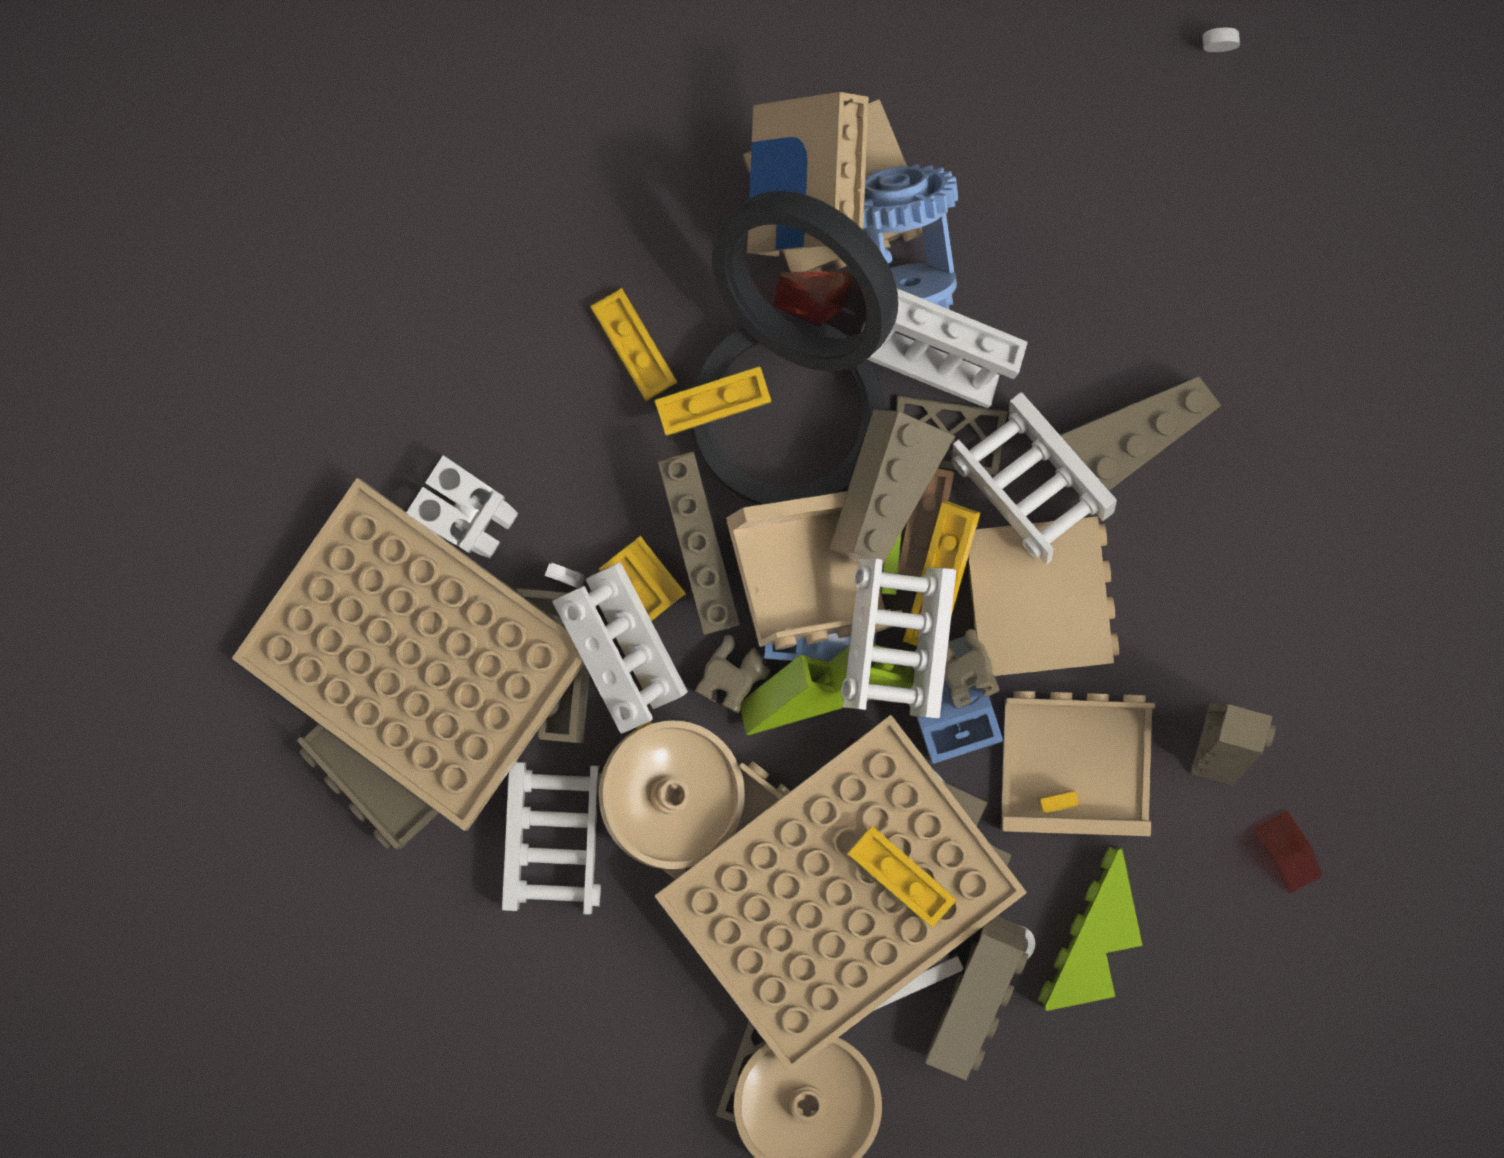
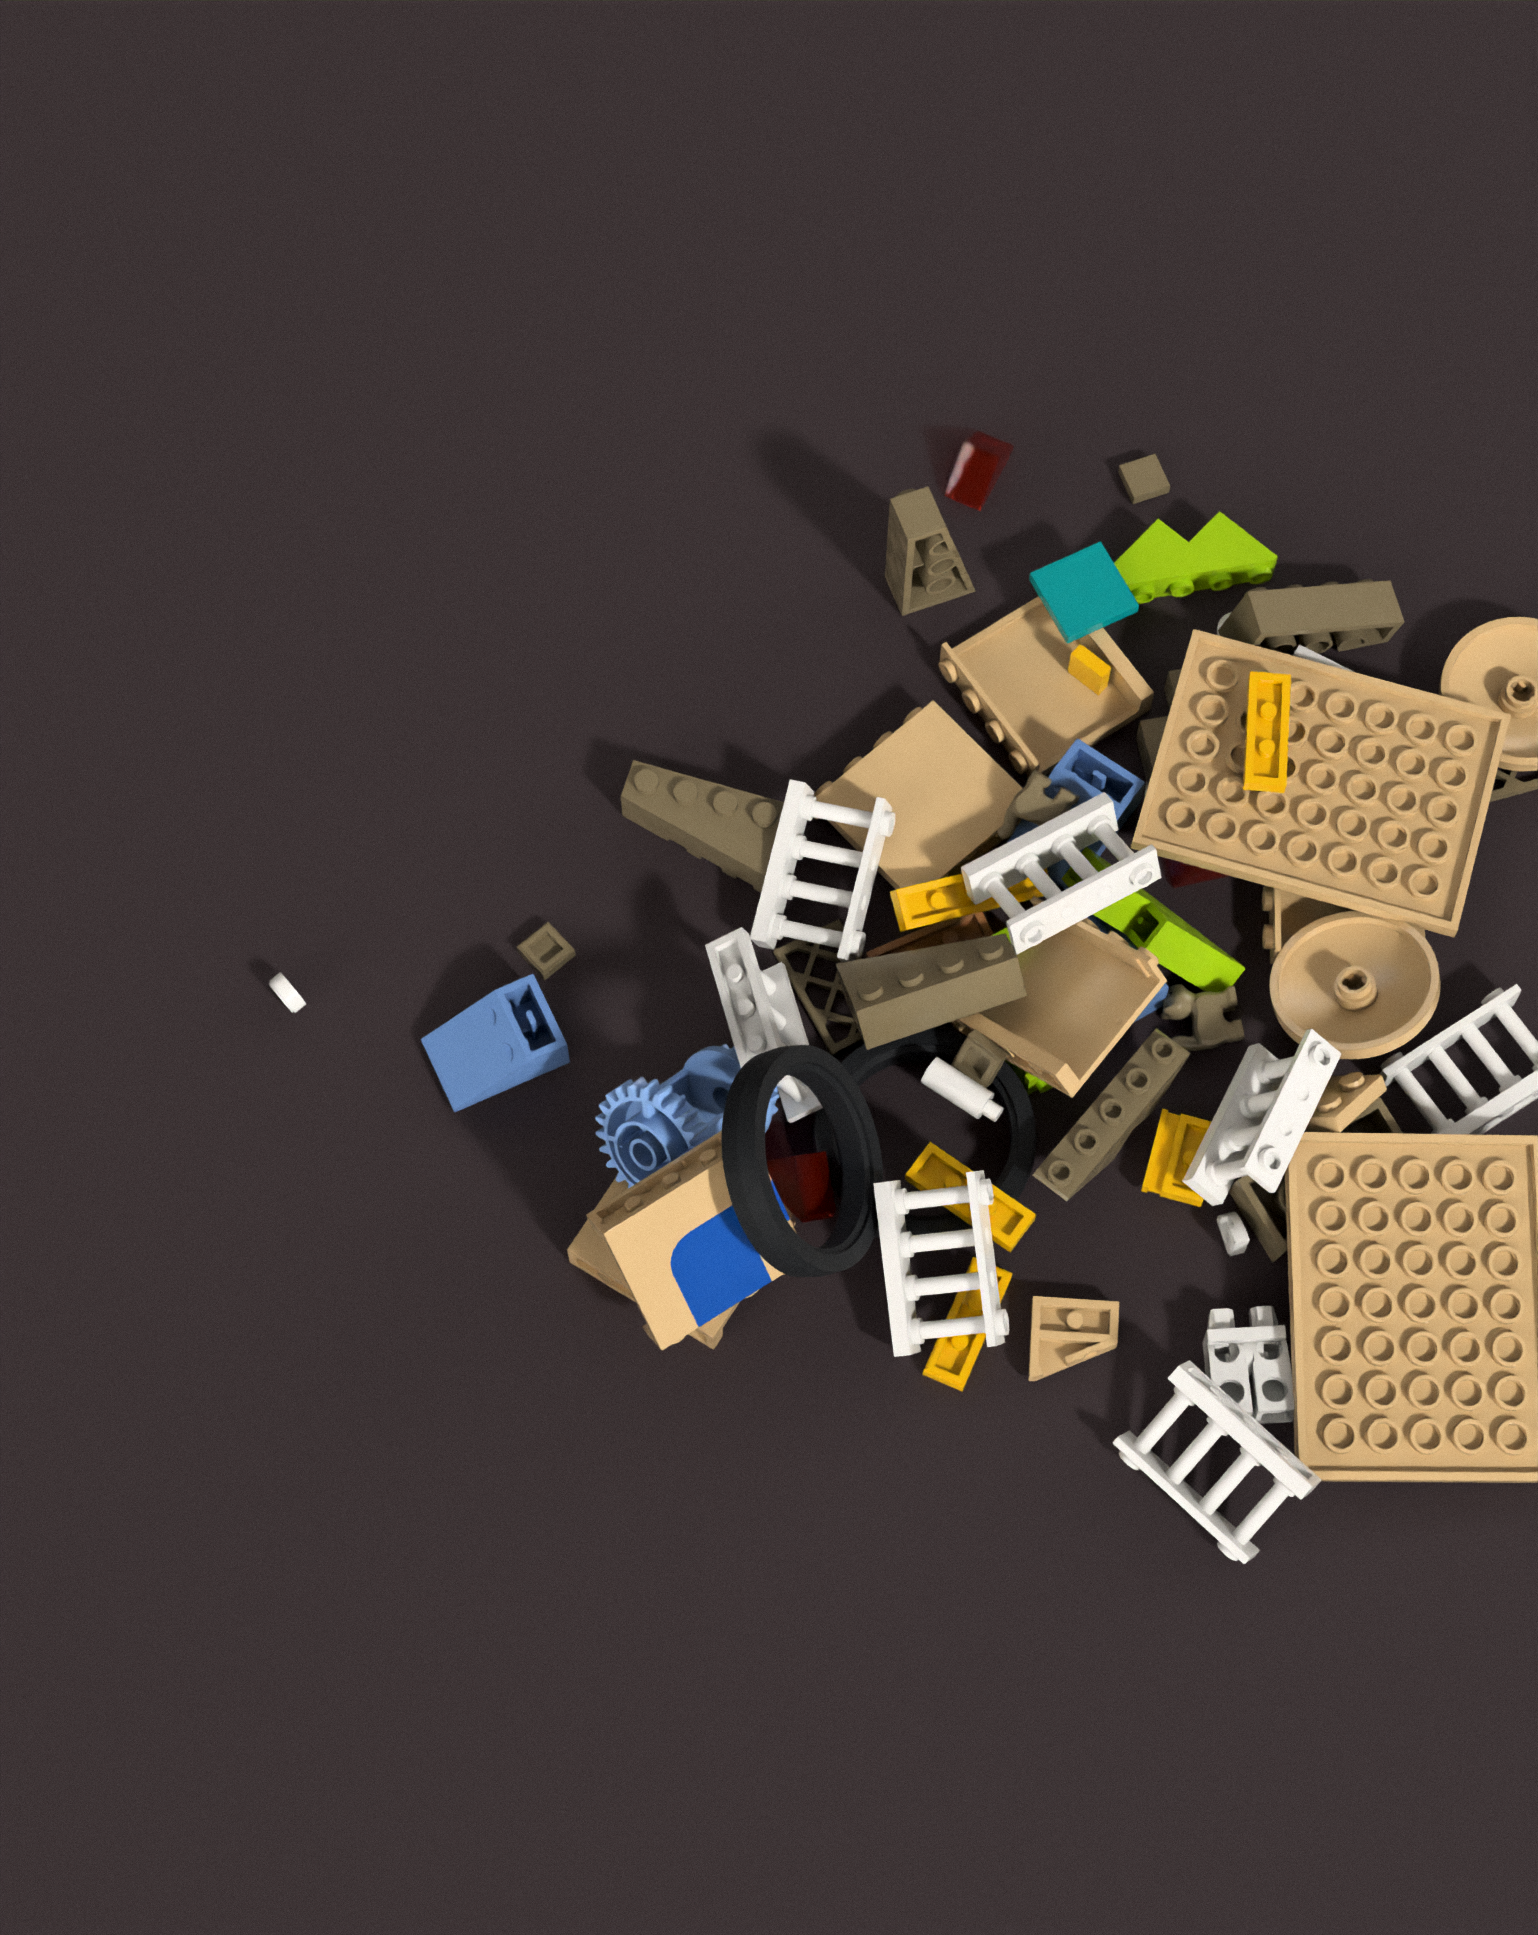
camera: 130 degrees left, 20 degrees down
(413, 460) = (1257, 1449): none -> white fence
(575, 407) = (1069, 1332): none -> tan wing
(589, 716) = (1345, 1100): none -> tan wing
(682, 310) = (905, 1288): none -> white fence
(795, 454) = (961, 1090): none -> white cylinder
(807, 481) = (979, 1058): none -> dark tan tile
(1072, 159) = (496, 1044): none -> medium blue slope
(1119, 839) = (1083, 592): none -> teal tile
(1124, 248) = (546, 951): none -> dark tan tile
(1190, 970) = (1144, 479): none -> dark tan tile

